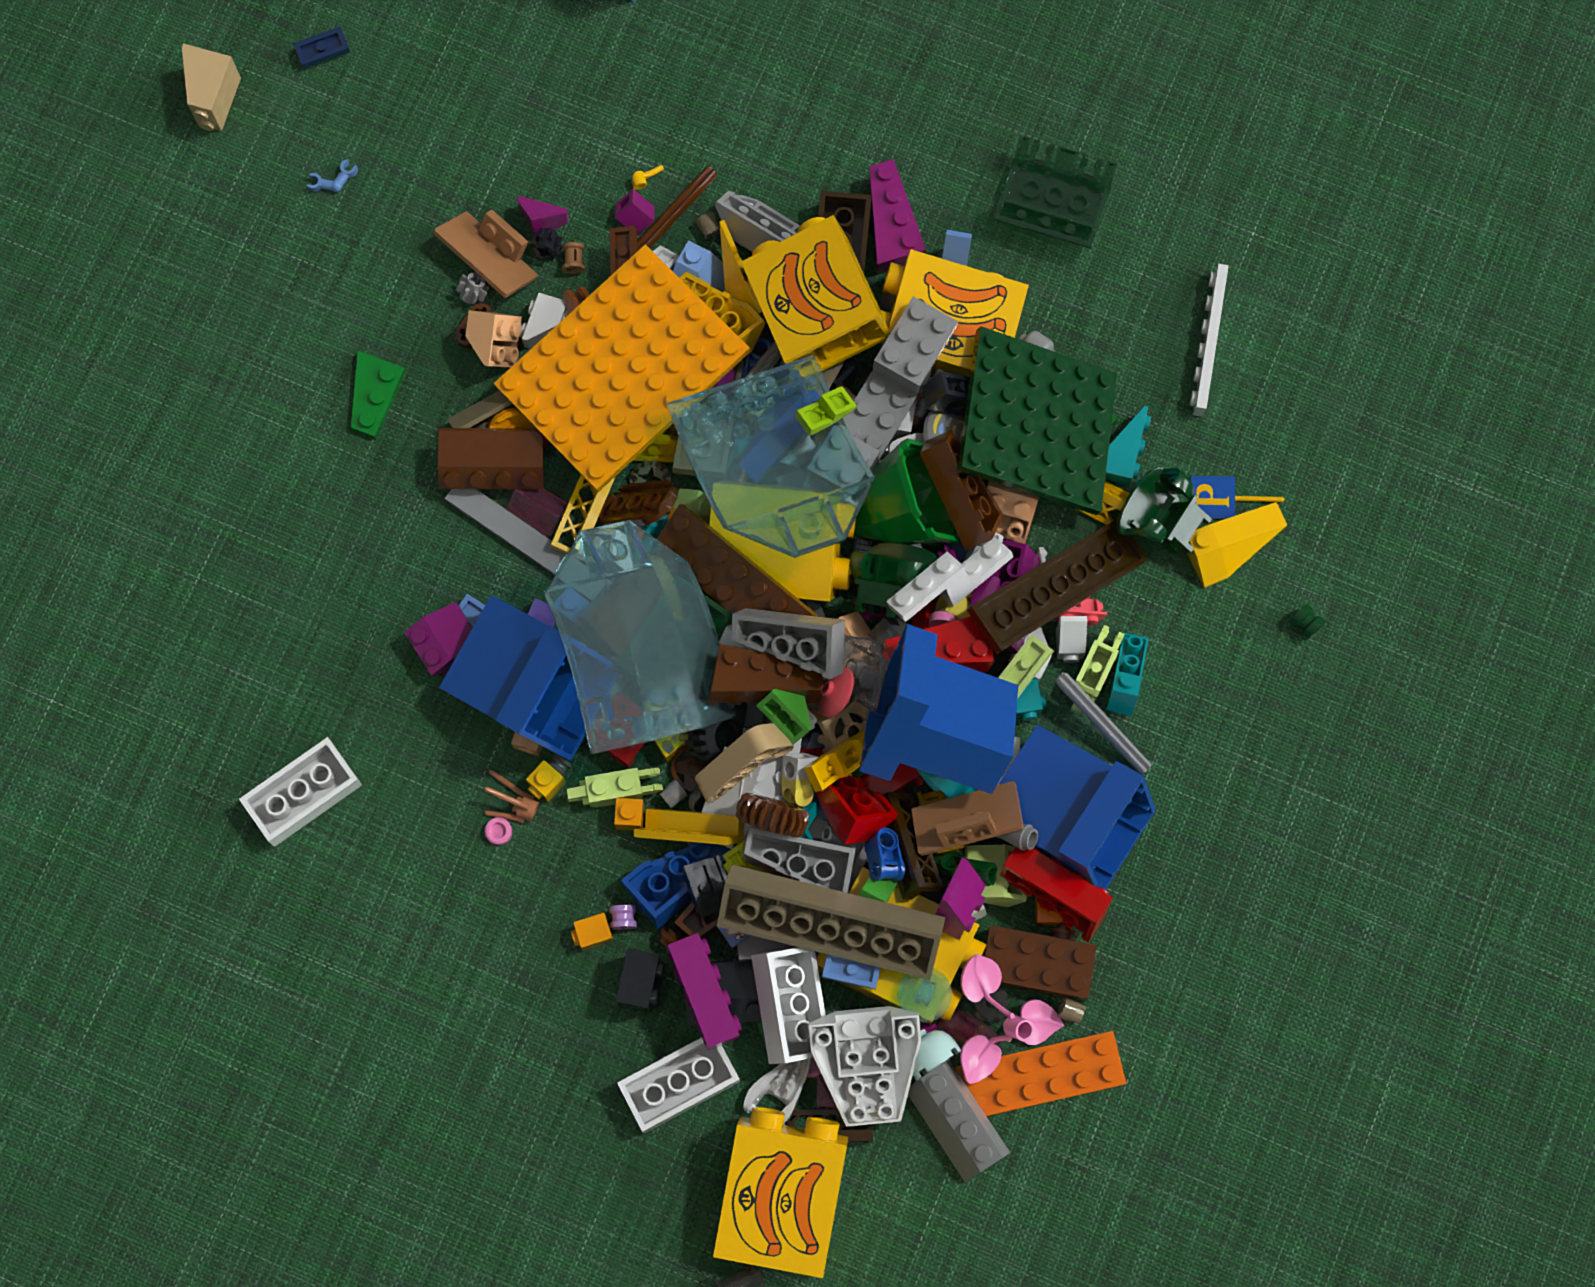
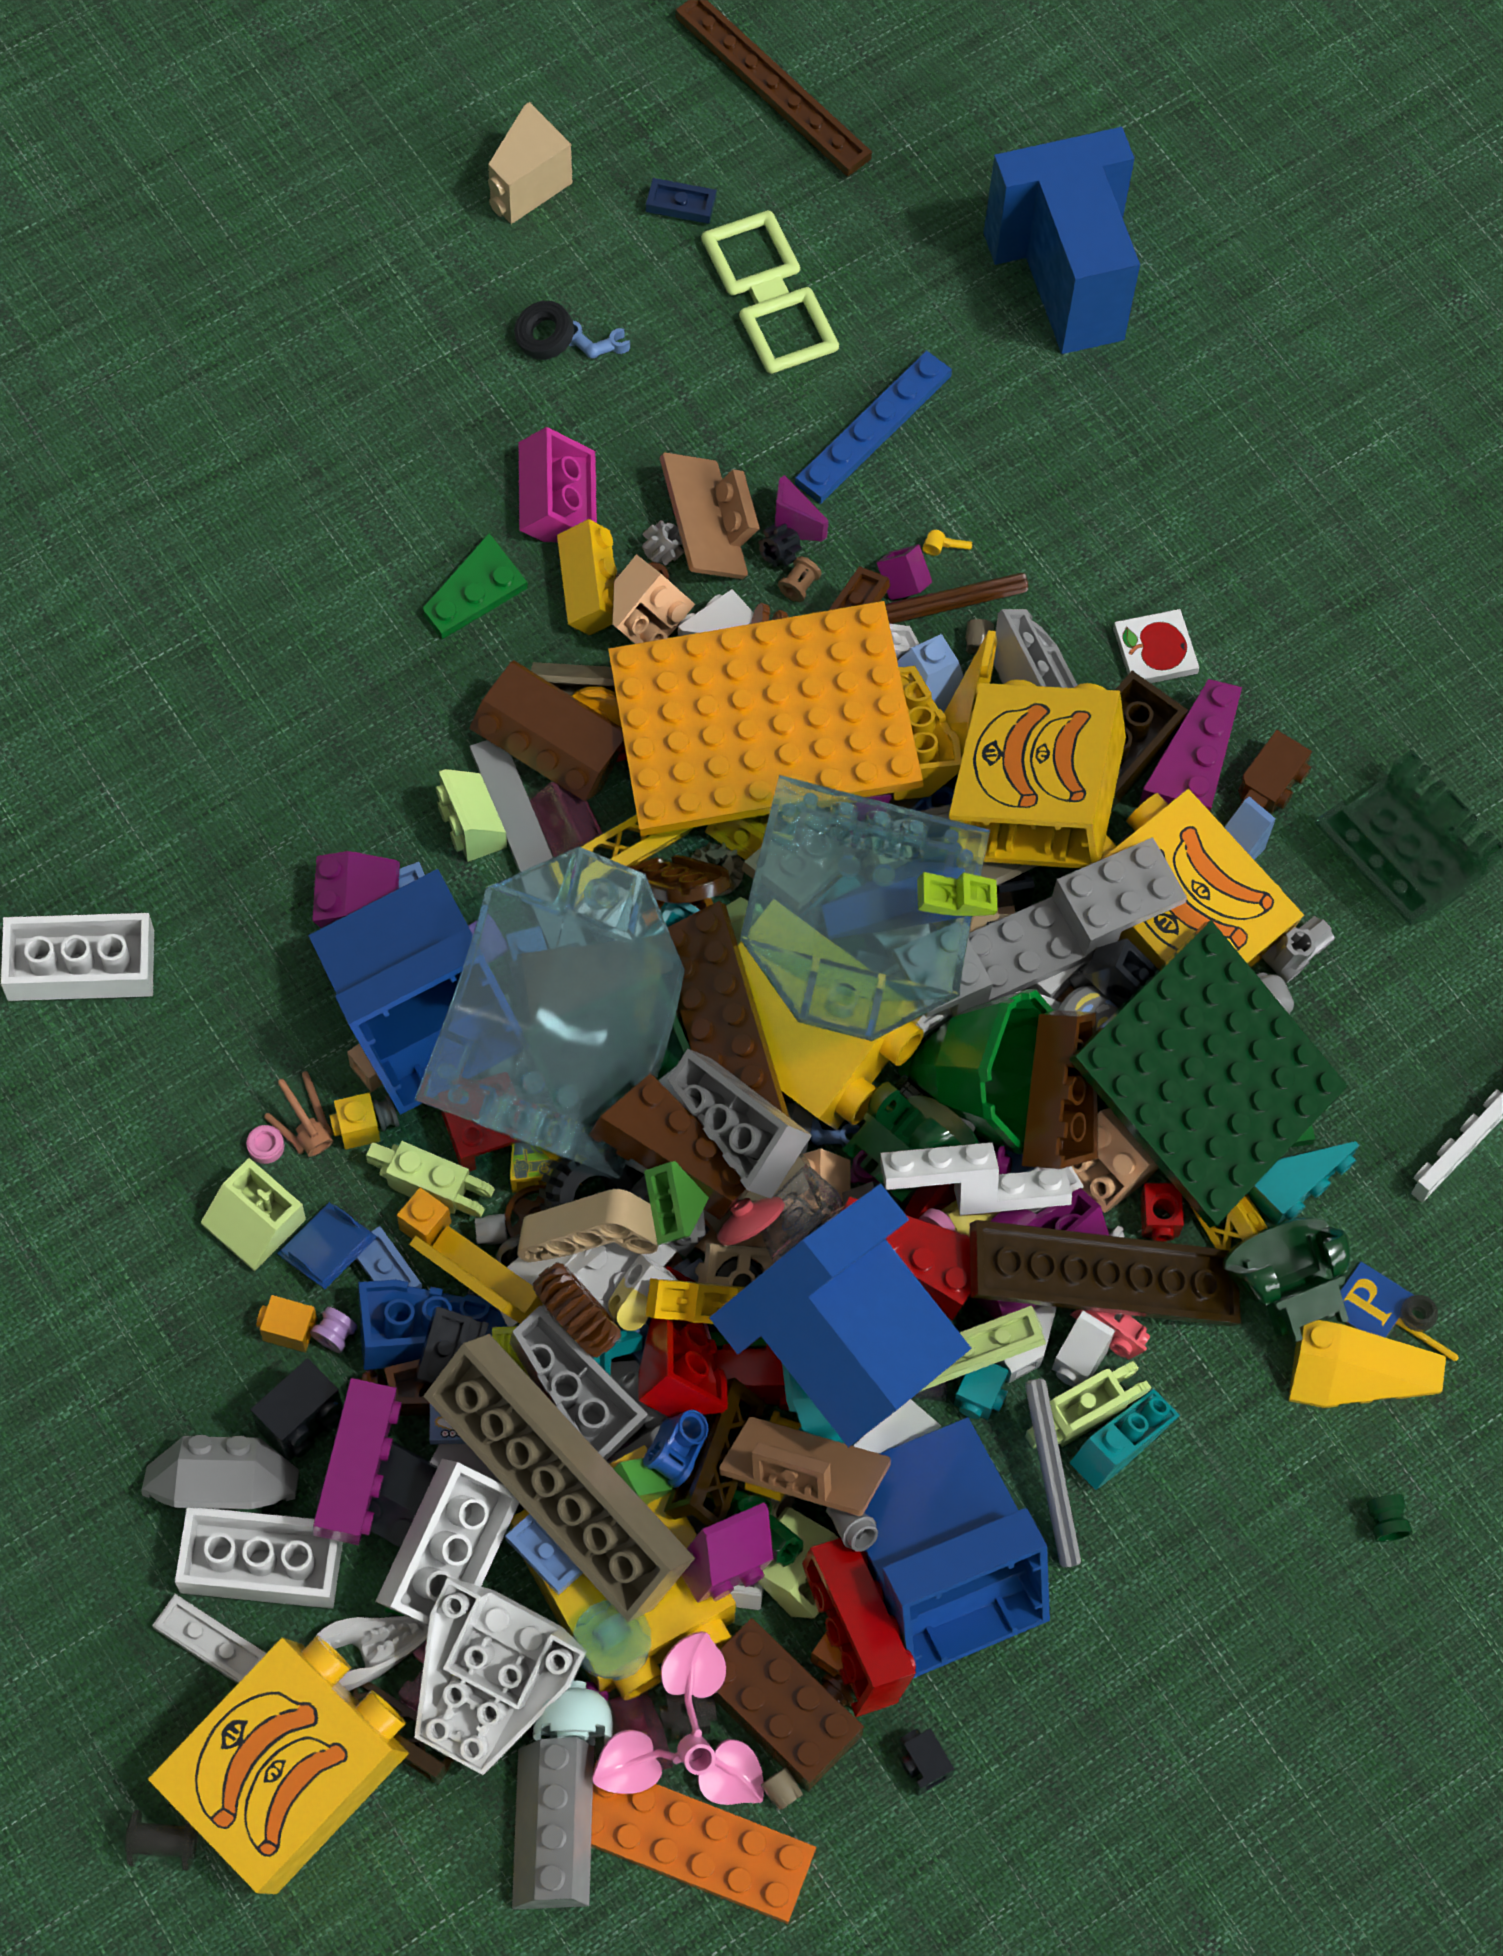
camera: 30 degrees right, 10 degrees down
(282, 187) = (556, 342): none -> black tyre
(380, 294) = (555, 484): none -> dark pink slope
(420, 75) = (769, 291): none -> yellowish green bar
(442, 340) = (588, 575): none -> yellow brick
(478, 542) = (470, 814): none -> yellowish green slope
(525, 880) = (253, 1214): none -> yellowish green slope
(548, 126) = (873, 427): none -> blue plate
(581, 869) = (327, 1245): none -> blue piece
(619, 1051) = (220, 1474): none -> light grey wedge
(622, 856) = (384, 1261): none -> medium blue plate
(682, 1149) = (207, 1639): none -> white tile
(820, 163) = (1157, 646): none -> tile
(828, 606) = (822, 1136): none -> medium blue arm
(945, 203) = (1275, 772): none -> reddish brown hinge
(1035, 304) = (1297, 947): none -> light grey piece
(1059, 511) = (1164, 1197): none -> red brick
(1140, 939) = (924, 1760): none -> black brick
(1246, 479) = (1422, 1304): none -> clear smoke plate

